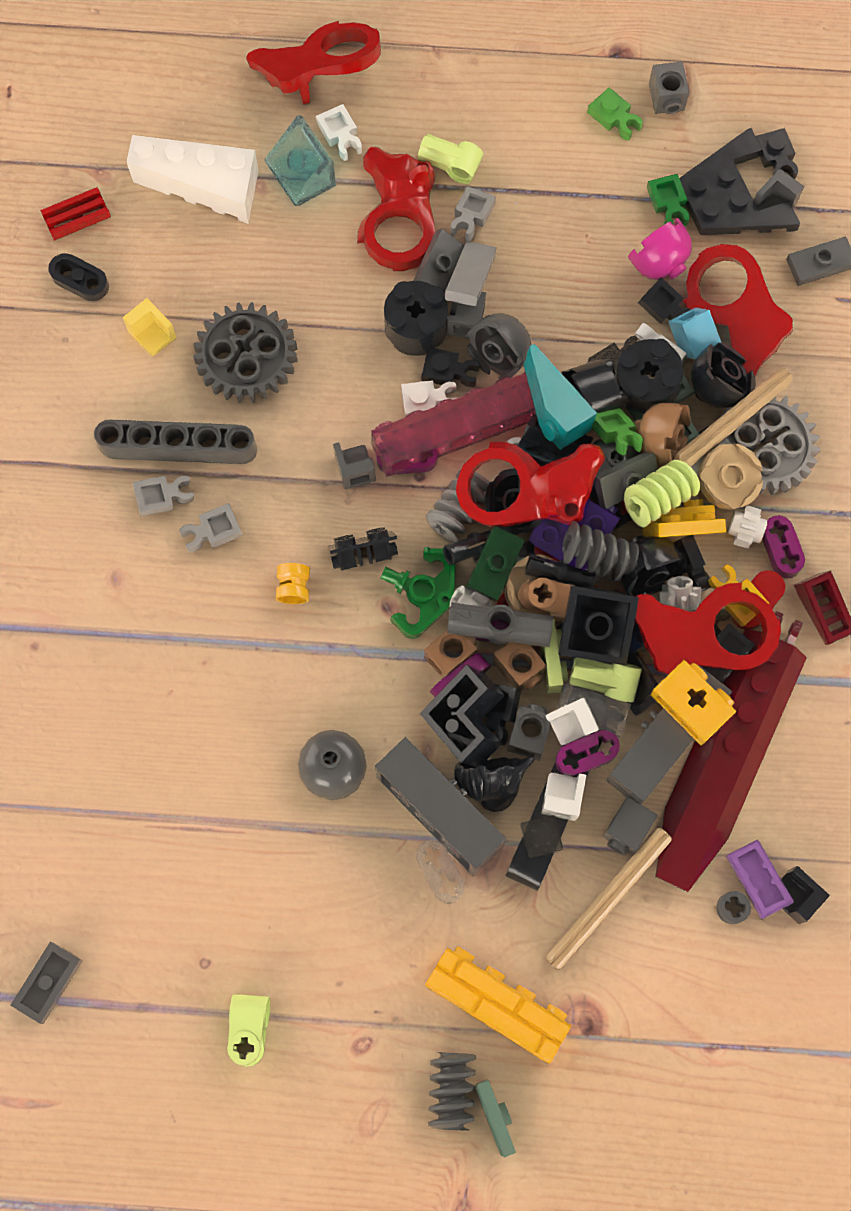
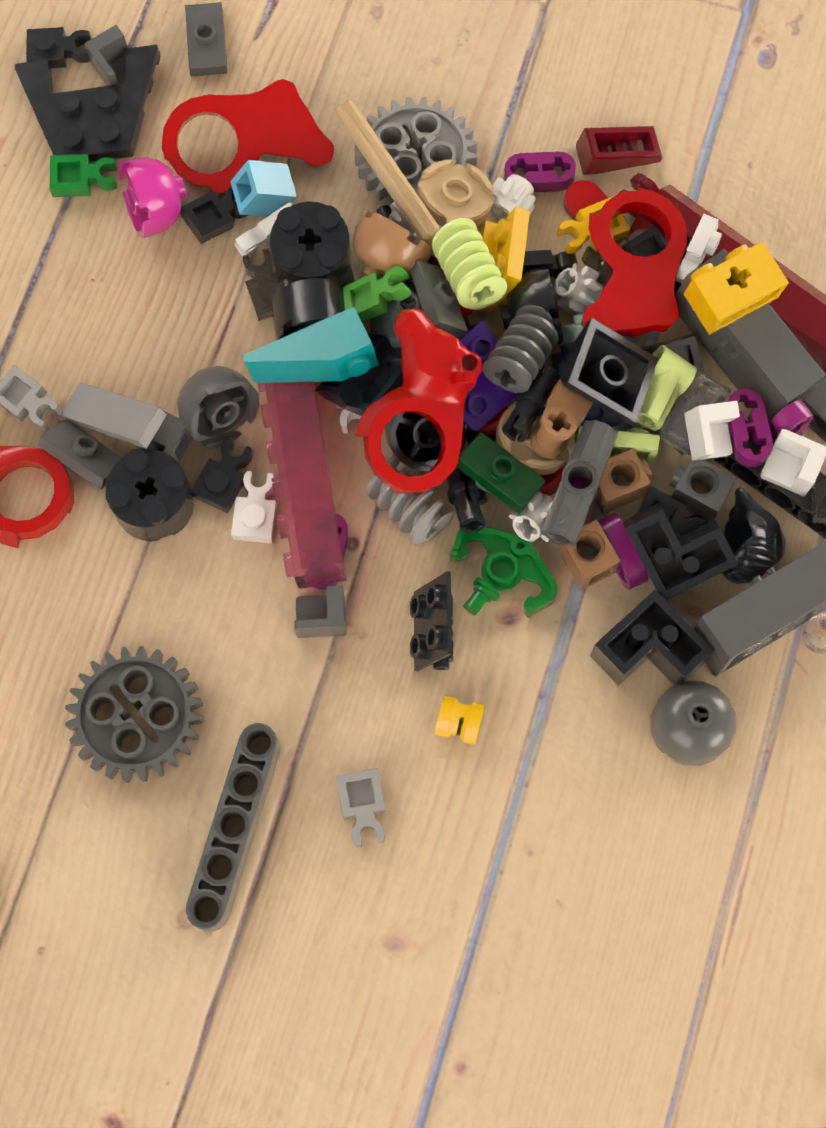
camera: 75 degrees left, 0 degrees up
(149, 327) = (63, 830): light yellow panel -> none
(156, 495) = (299, 866): light grey plate -> none
(393, 711) = (656, 634): none -> black brick
(601, 789) = (794, 418): none -> magenta beam
(720, 376) = (328, 175): black cylinder -> none
(743, 682) = (703, 242): none -> white plate

